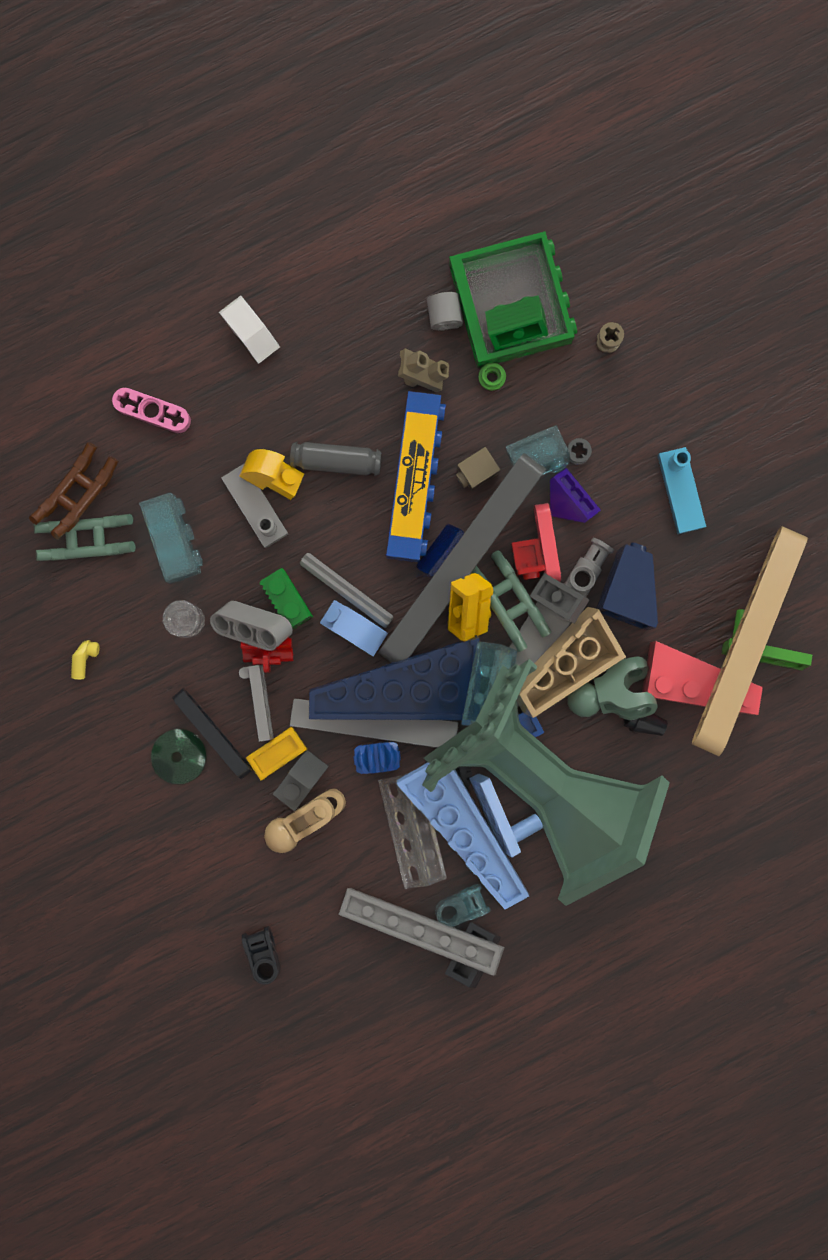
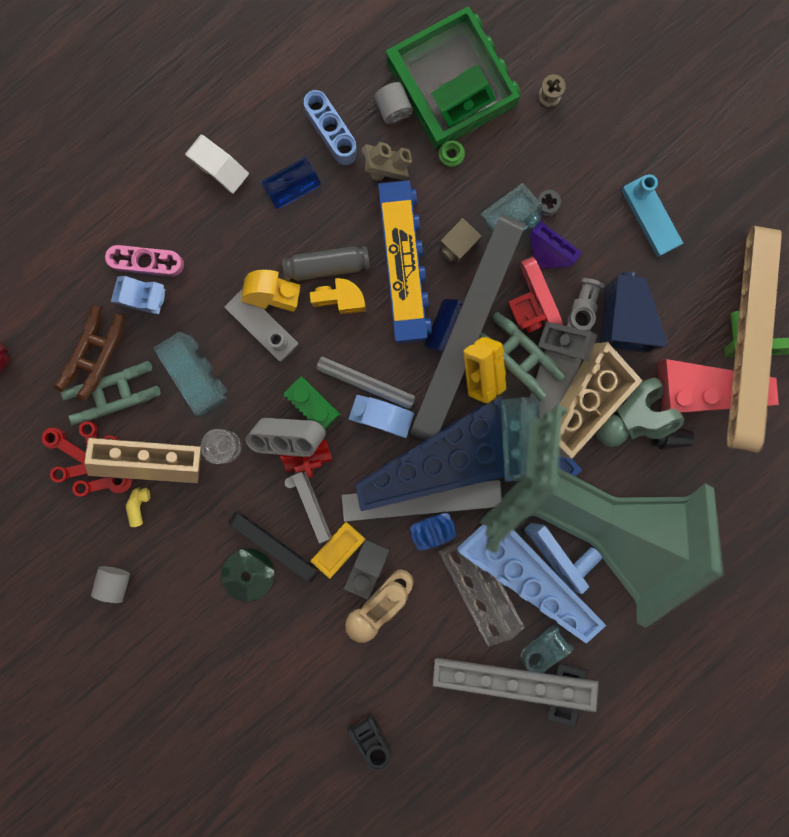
camera: 10 degrees left, 0 degrees up
(37, 731) = (110, 584): none -> light grey piece
(47, 602) = (77, 453): none -> red plant
(101, 614) = (142, 460): none -> tan brick
(137, 444) = (138, 294): none -> light blue brick
(320, 366) = (291, 182): none -> clear blue slope
(348, 496) = (346, 295): none -> yellow brick
(371, 308) = (326, 116): none -> light blue beam

